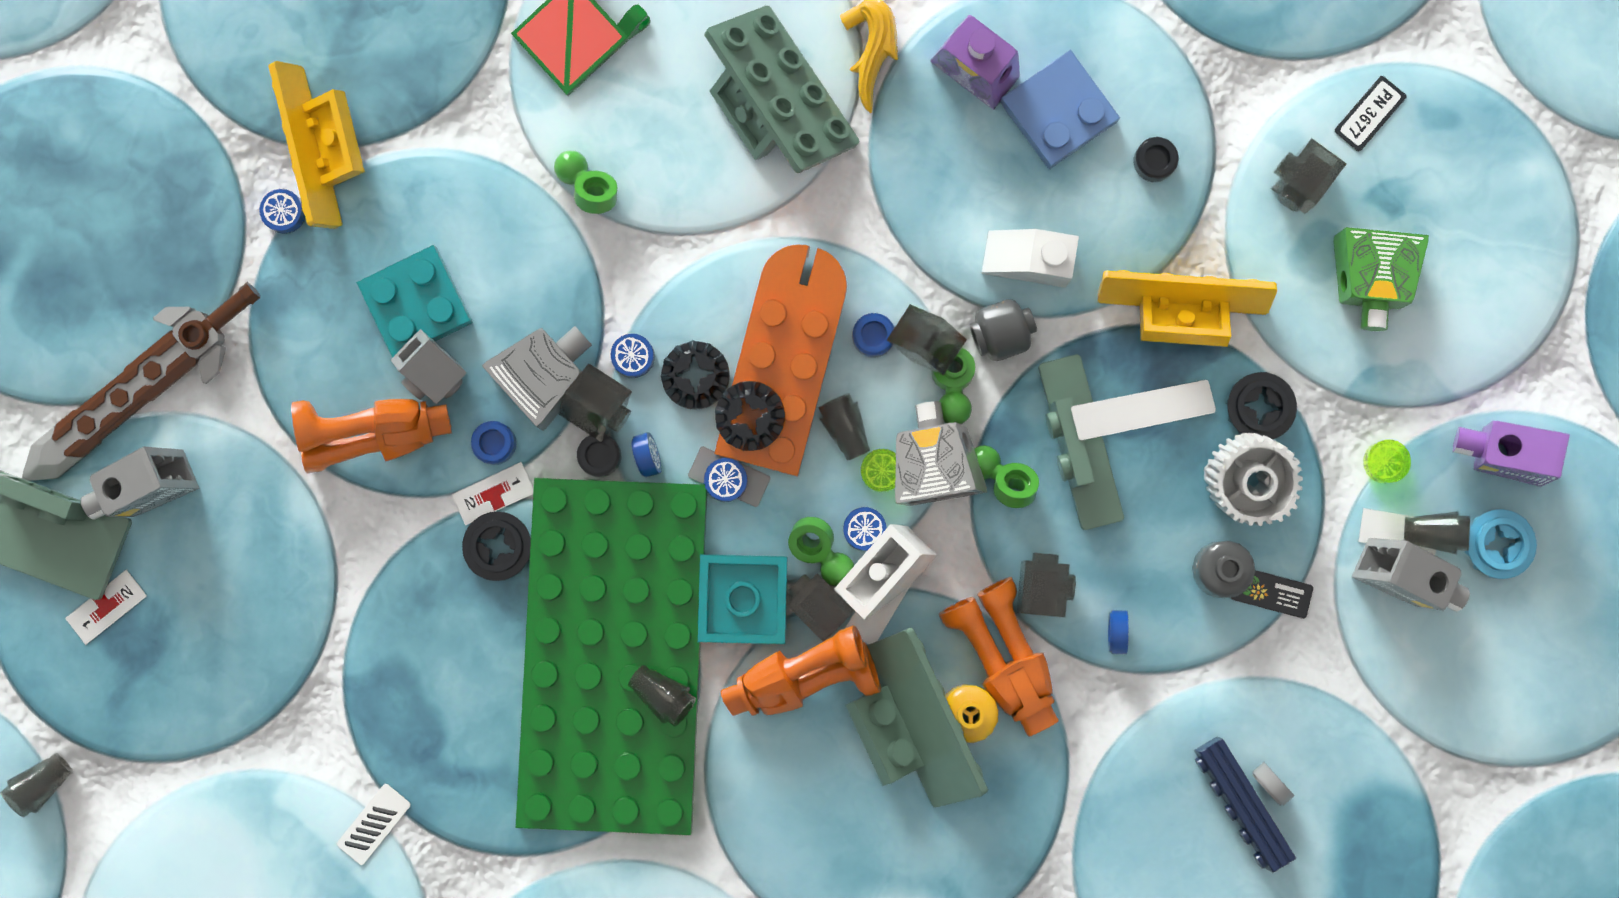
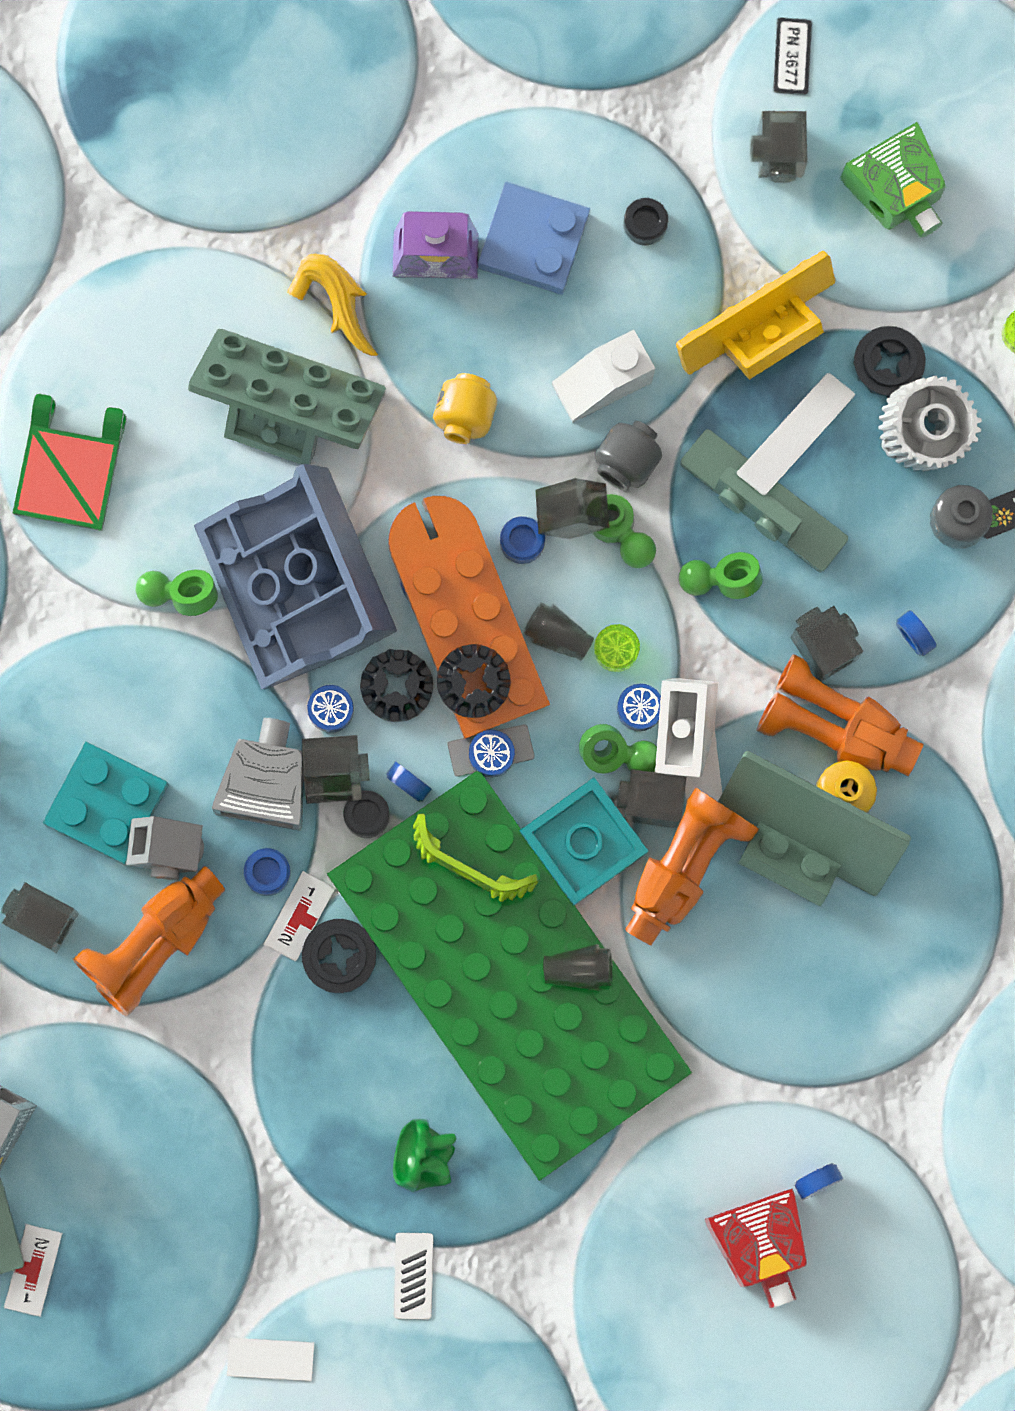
camera: 50 degrees left, 5 degrees down
(224, 804) = (270, 1359): none -> white sticker
(299, 351) = (38, 917): none -> clear smoke brick
(443, 743) = (422, 1156): none -> green piece
(619, 520) = (503, 887): none -> lime piece
(681, 236) = (295, 577): none -> sand blue piece
(905, 202) = (465, 408): none -> yellow head
(935, 460) = (657, 603): light grey torso -> none

